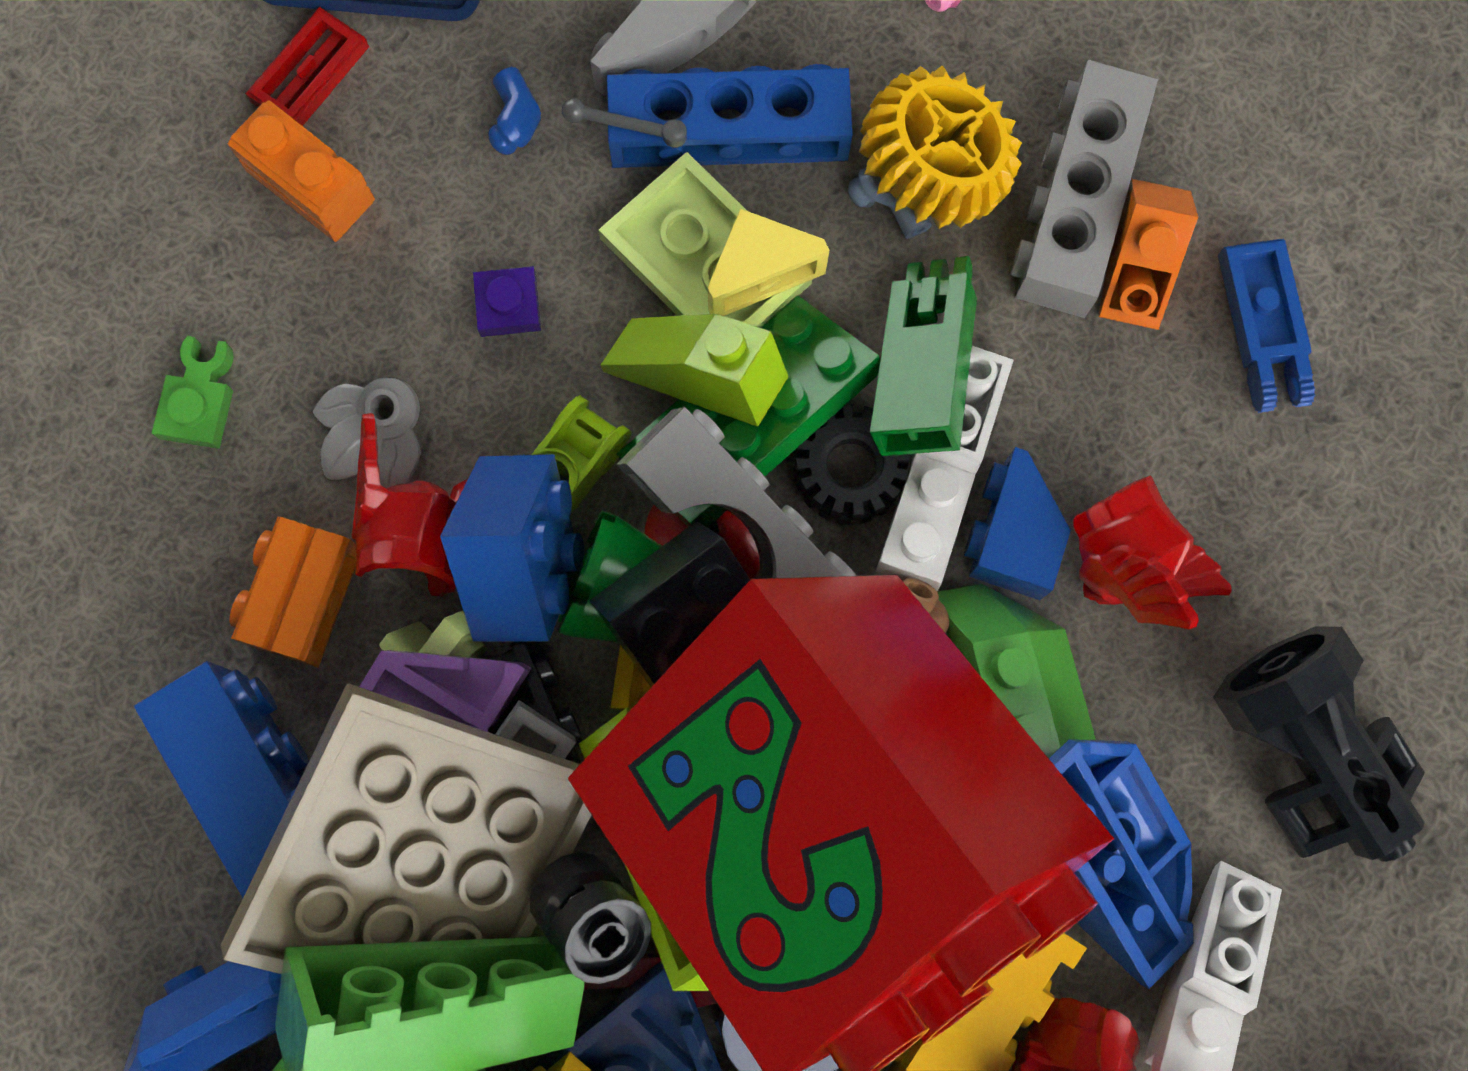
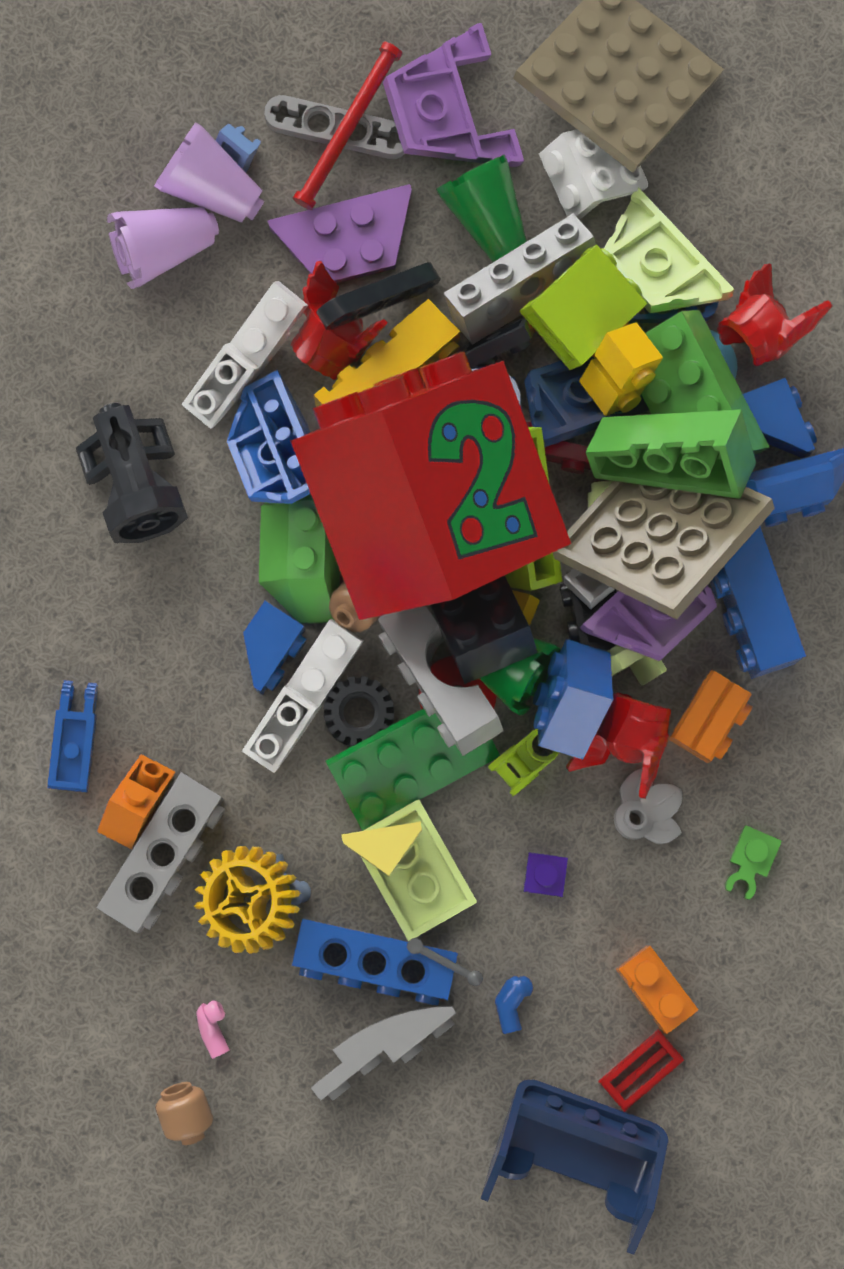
camera: 165 degrees left, 5 degrees up
(590, 918) = (577, 479): black wheel -> none
(703, 362) = (439, 792): lime slope -> none
(925, 365) = (301, 753): hinge -> none
(1144, 558) = (206, 611): red helmet -> none

